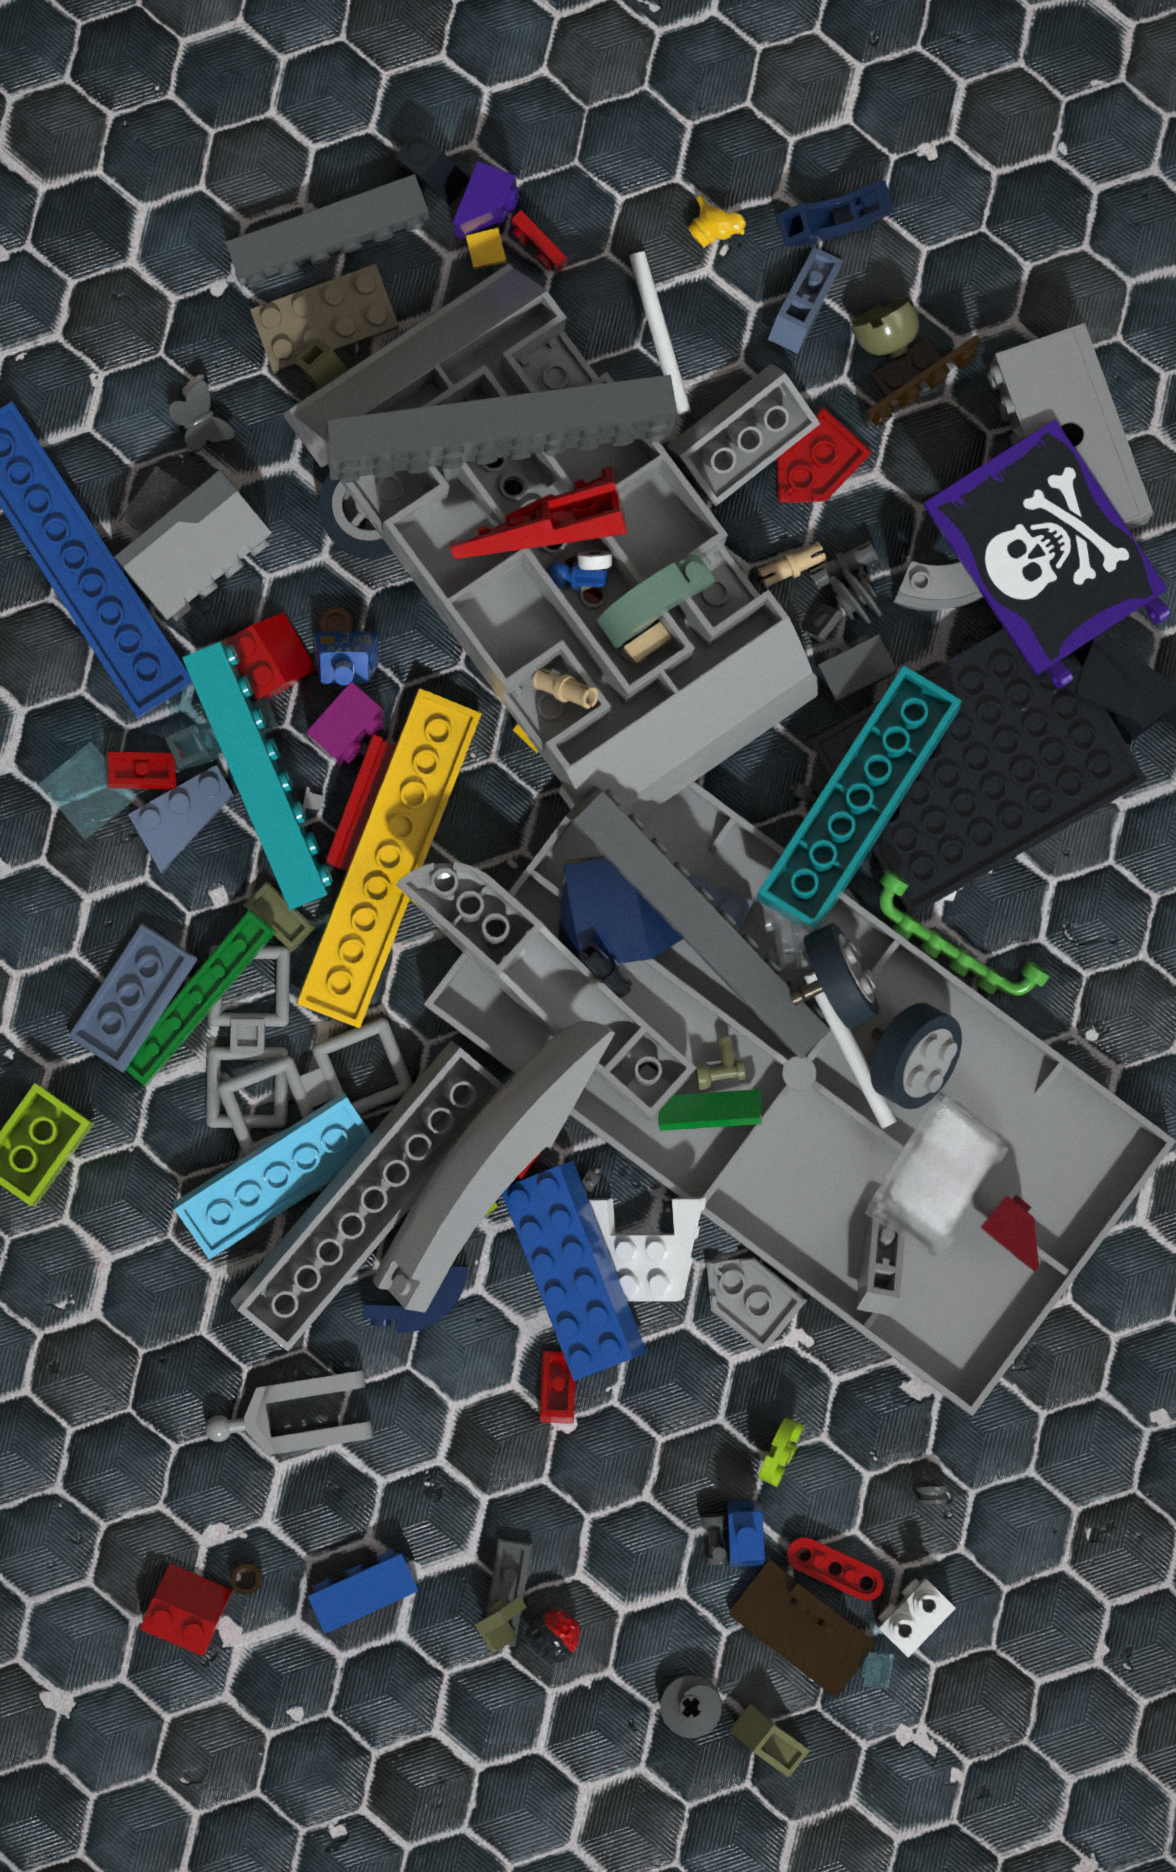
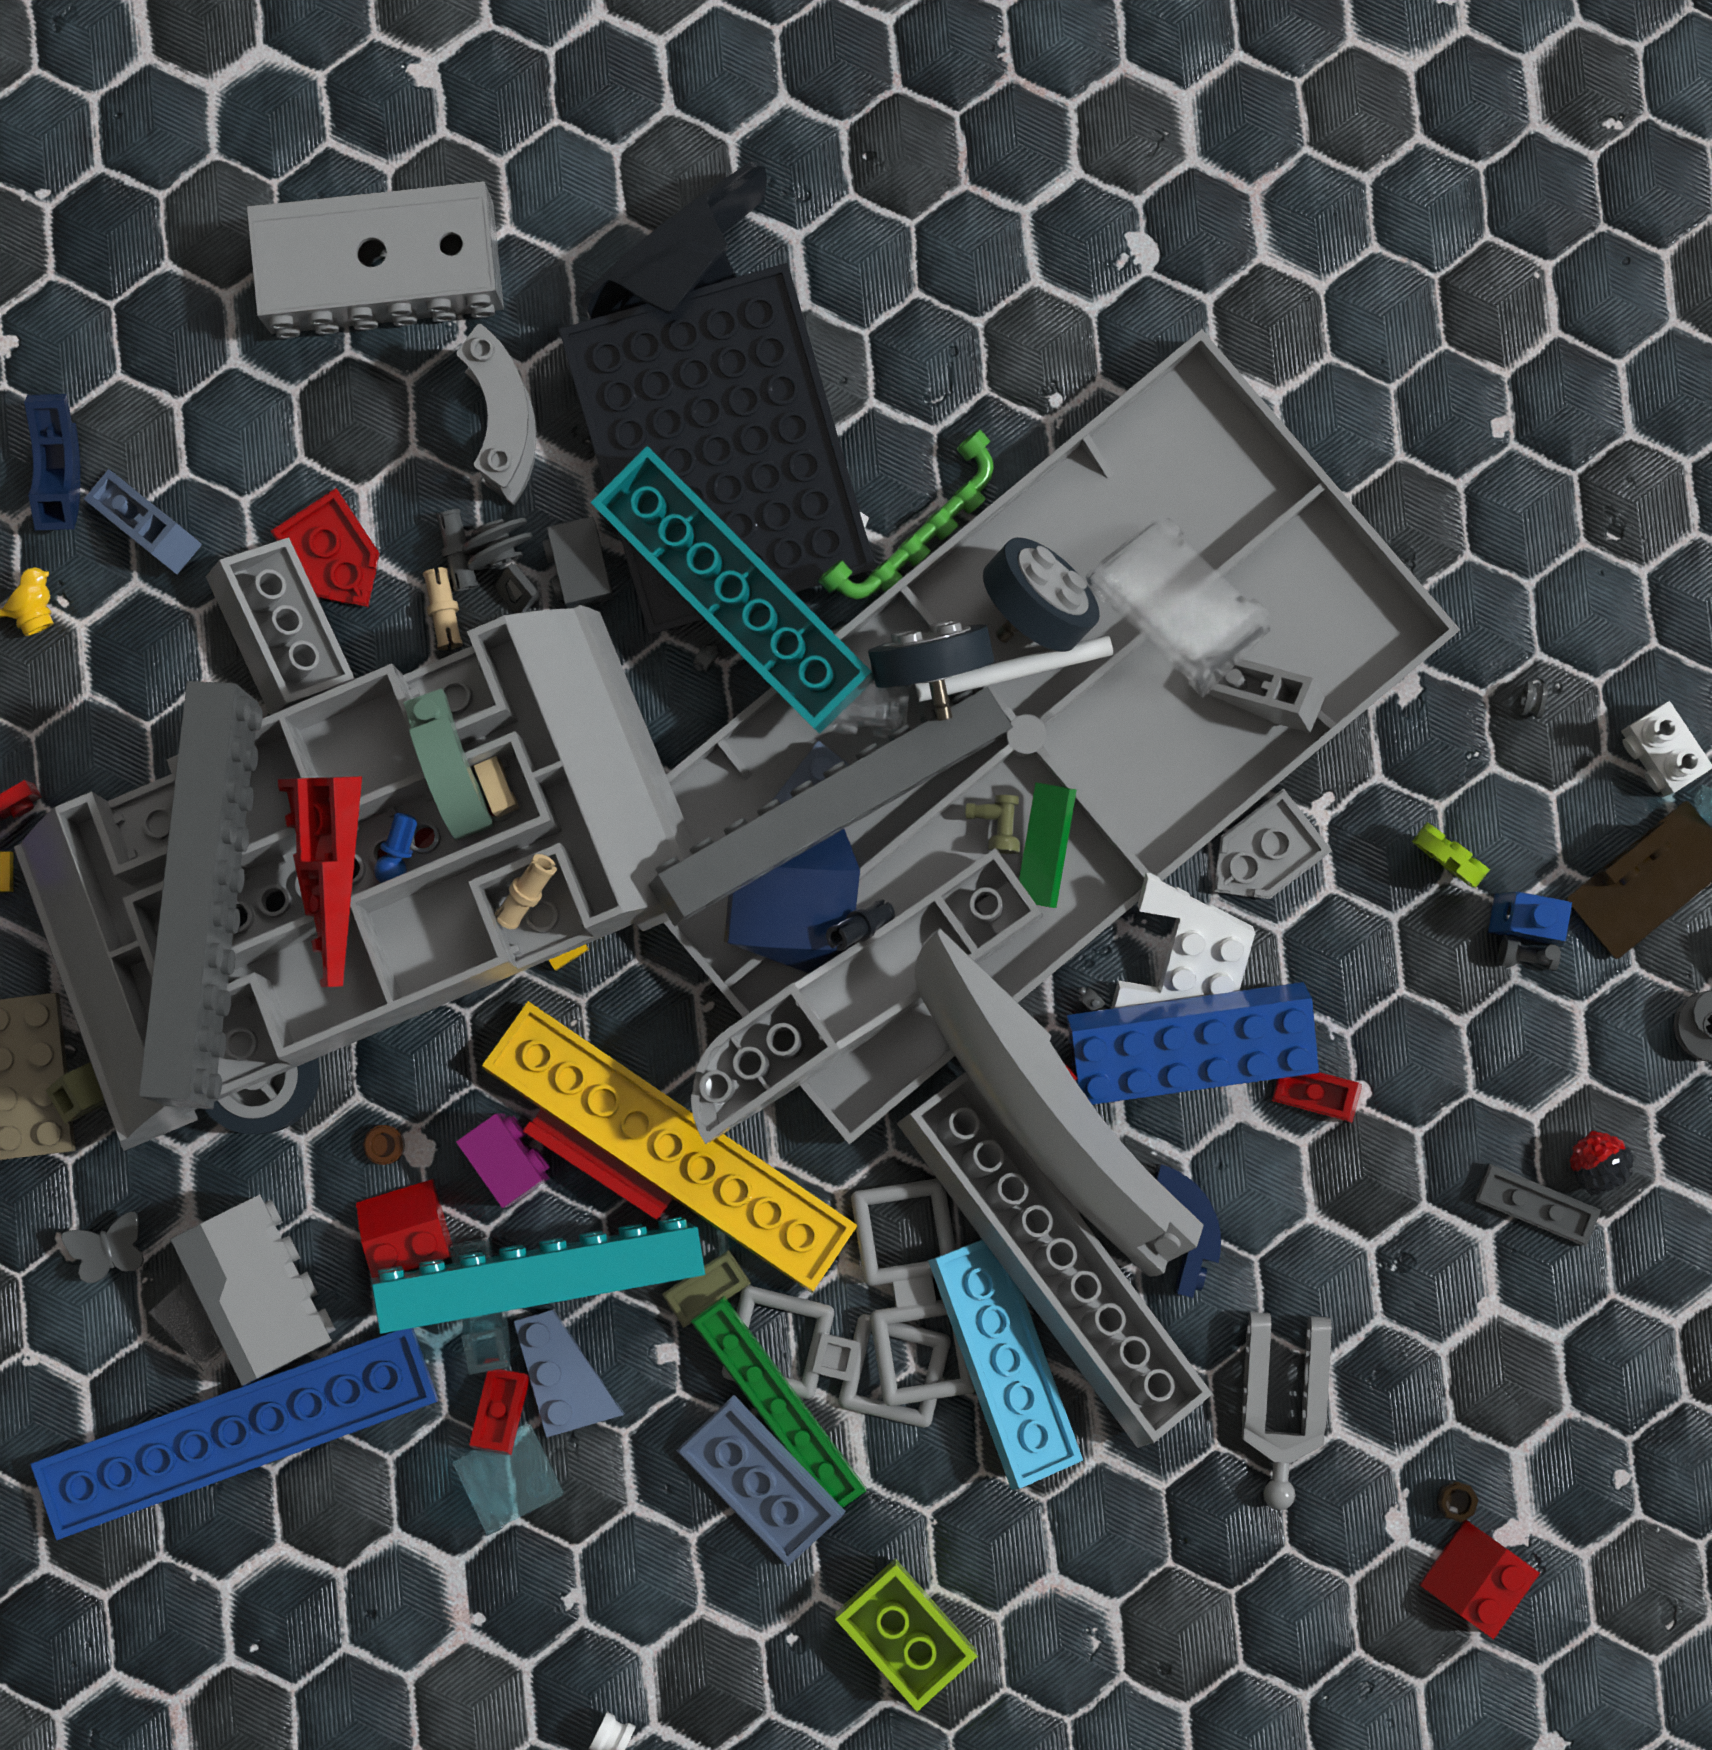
camera: 80 degrees left, 0 degrees up
(311, 800) = (581, 1220): light grey piece -> none
(346, 656) = (424, 1142): blue torso -> none
(362, 1590) = (1502, 1370): blue brick -> none
(495, 1626) = (1576, 1225): olive bracket -> none
(594, 560) = (383, 824): white tile -> none
(659, 329) = (113, 697): white piece -> none
(851, 1569) = (1607, 819): red plate -> none
(887, 328) = (198, 435): olive cylinder -> none
(912, 372) = (256, 423): dark brown bracket -> none
(1014, 1229) = (1262, 531): dark red slope -> none
(1046, 549) = (497, 308): flag -> none

